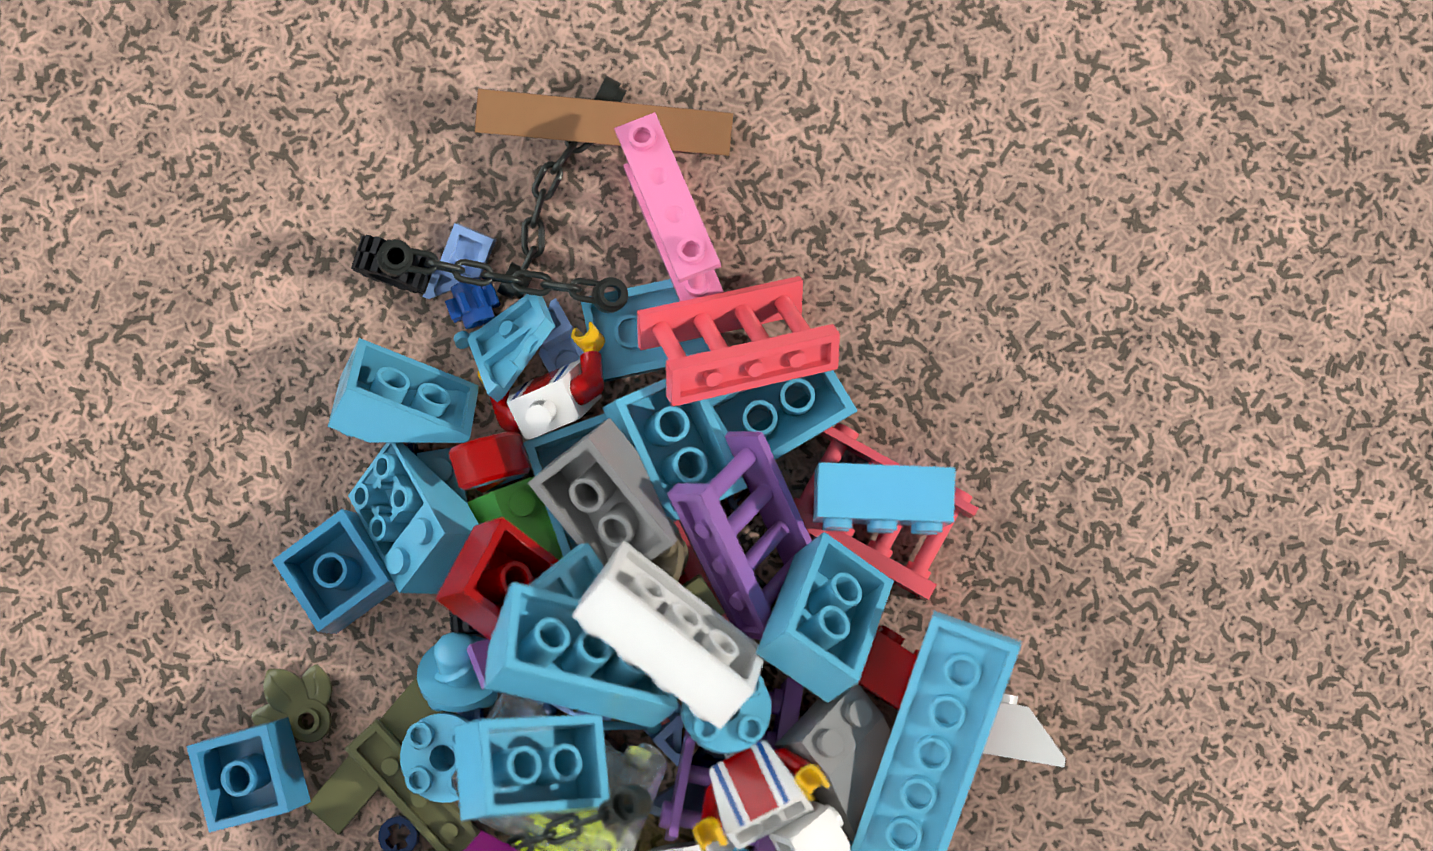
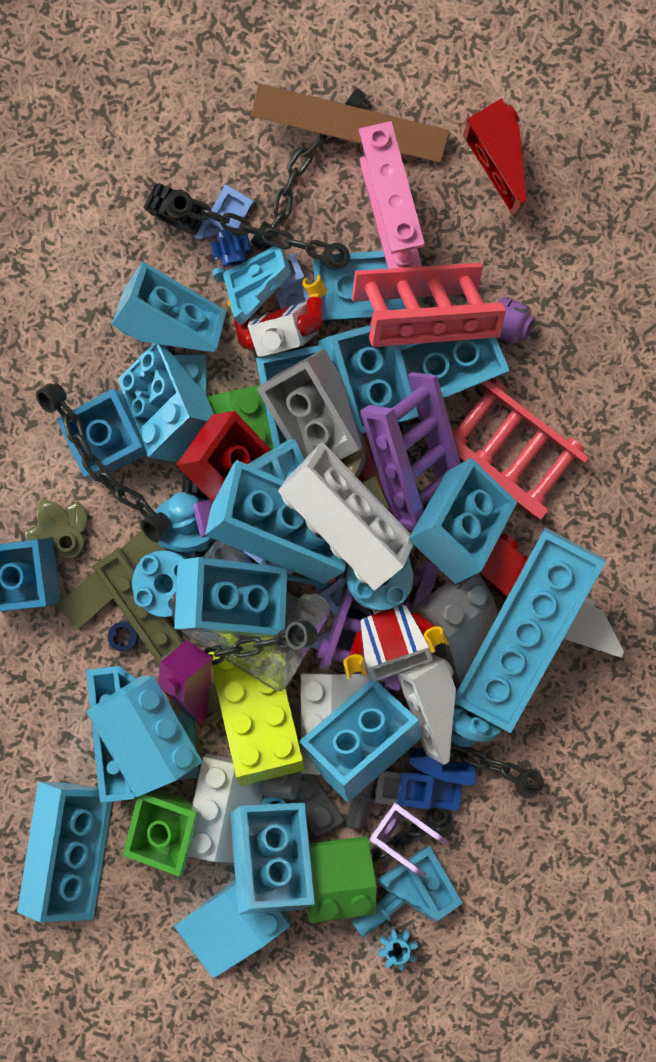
camera: 10 degrees right, 5 degrees up
(263, 533) = (52, 398): none -> pearl dark grey piece
(490, 462) = (229, 369): red animal -> none
(797, 122) = (496, 143): none -> red slope
(857, 344) = (517, 321): none -> medium lavender head
(883, 497) = (519, 438): medium azure brick -> none

